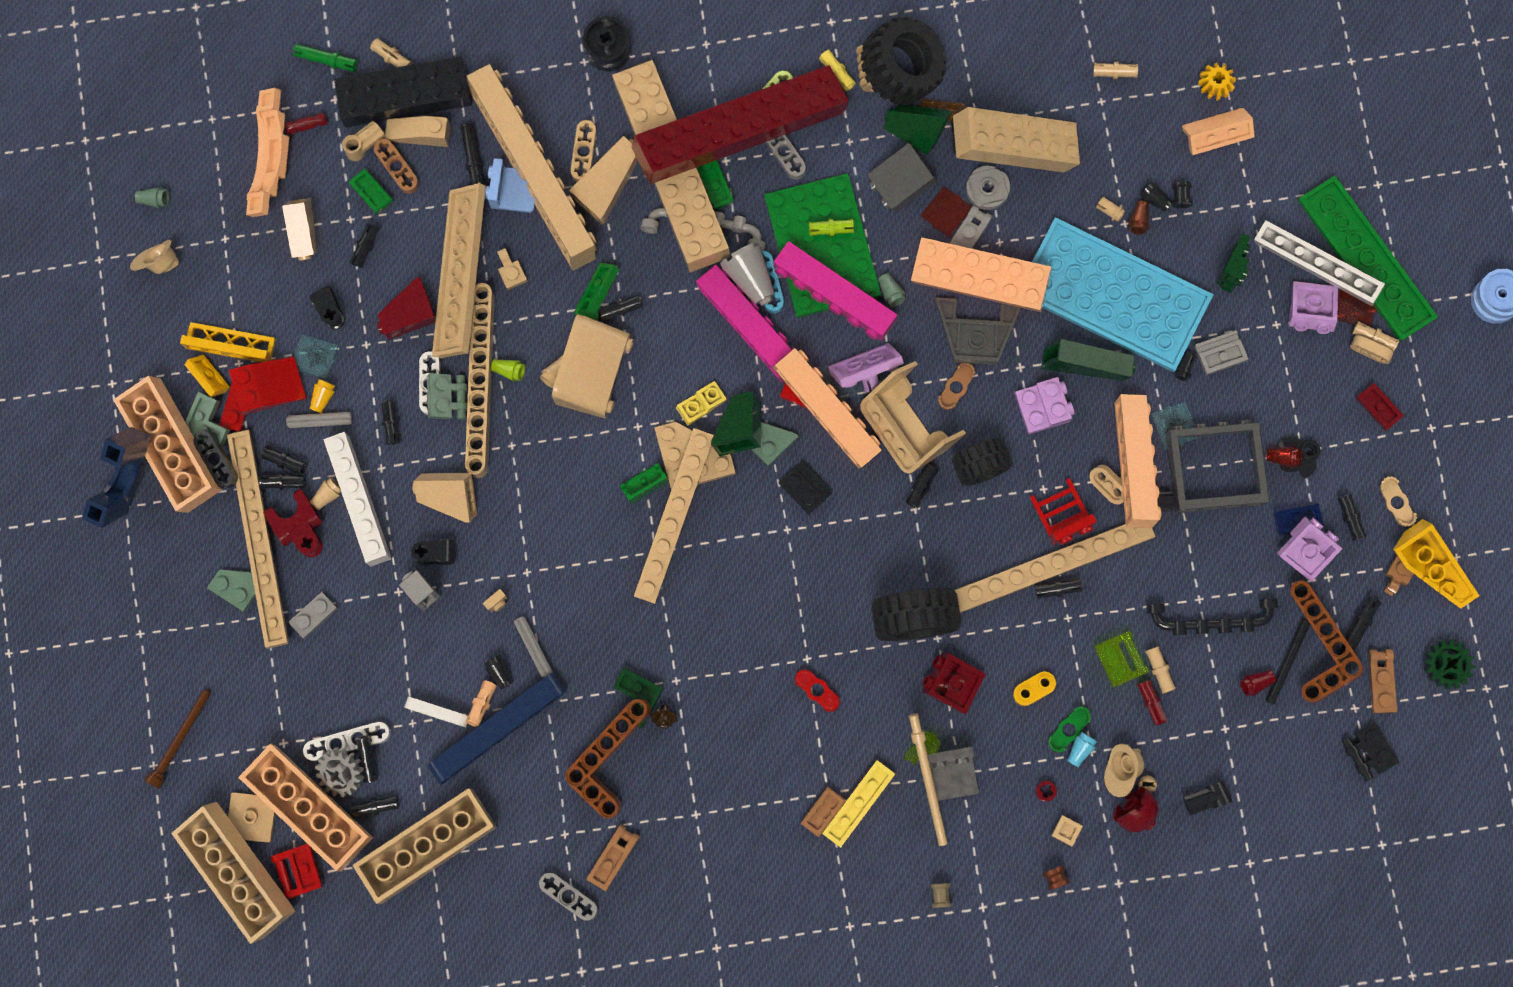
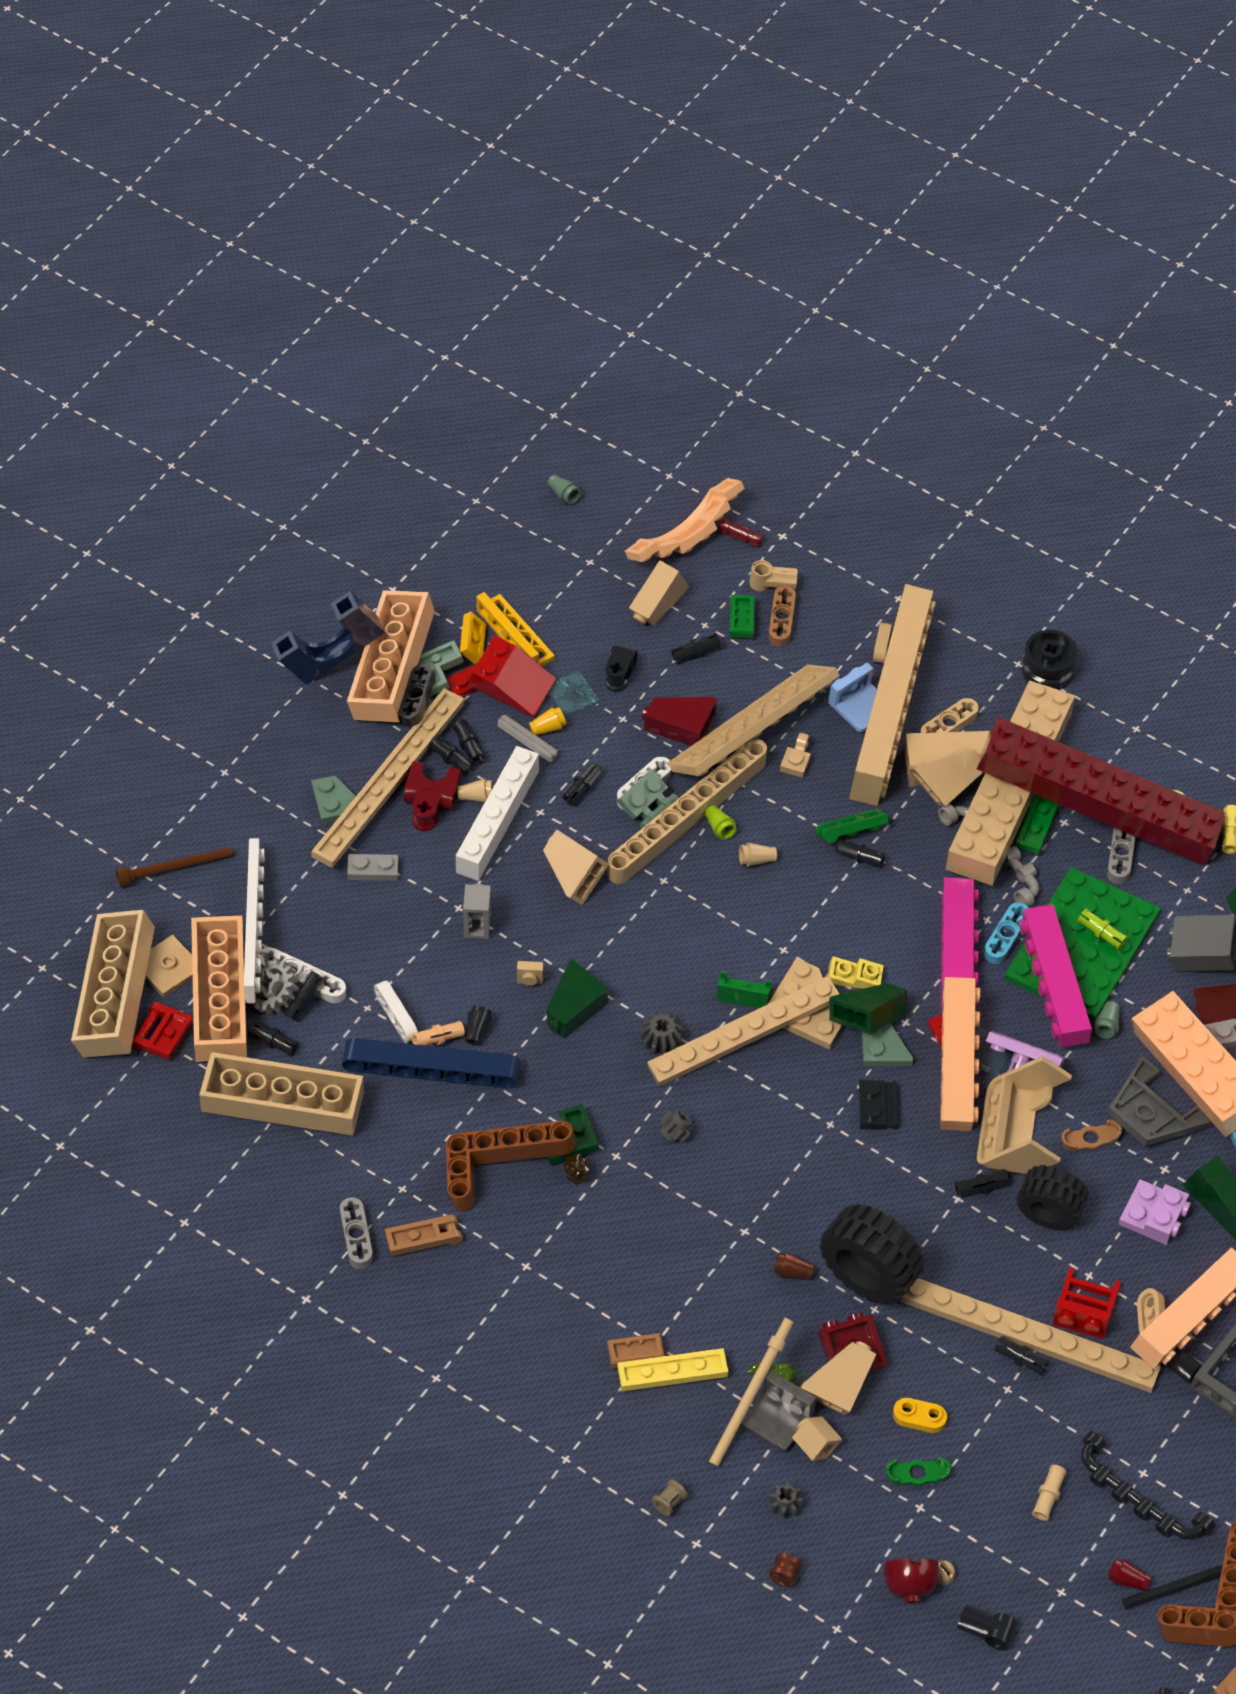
camera: 35 degrees right, 25 degrees down
(157, 259) = (522, 534): tan piece -> none
(285, 743) = (253, 927): none -> white plate
(334, 59) = (810, 506): green pin -> none
(389, 54) = (860, 538): tan pin -> none
(402, 92) = (841, 567): black brick -> none
(419, 130) = (829, 606): tan slope -> none
(437, 552) = (518, 901): black piece -> none
(471, 151) = (847, 660): black pin -> none
(483, 128) = (882, 642): none -> tan beam
(533, 646) = (525, 1029): light grey axle -> none
(544, 594) = (575, 1000): none -> dark green slope
(590, 366) = (786, 867): tan windscreen -> none
(615, 570) = (661, 1032): none -> dark grey gear
(626, 197) = (948, 774): none -> tan slope
(697, 627) = (675, 1126): none -> dark grey gear
(750, 273) = (996, 903): light grey cone -> none
(827, 700) = (728, 1272): red piece -> none
(861, 660) = (792, 1267): none -> copper cone
(969, 715) = (841, 1378): none -> tan slope
(992, 769) = (816, 1438): none -> tan brick
(1017, 825) = (785, 1500): none -> dark grey gear
(1039, 793) = (843, 1507): dark red bush -> none
(1066, 831) = (833, 1543): tan plate -> none
(1081, 749) = (914, 1492): medium azure cone -> none
(1115, 662) = (1013, 1453): clear neon green plate -> none
(1123, 769) = (936, 1537): tan piece -> none
(1152, 702) = (1015, 1511): dark red axle -> none

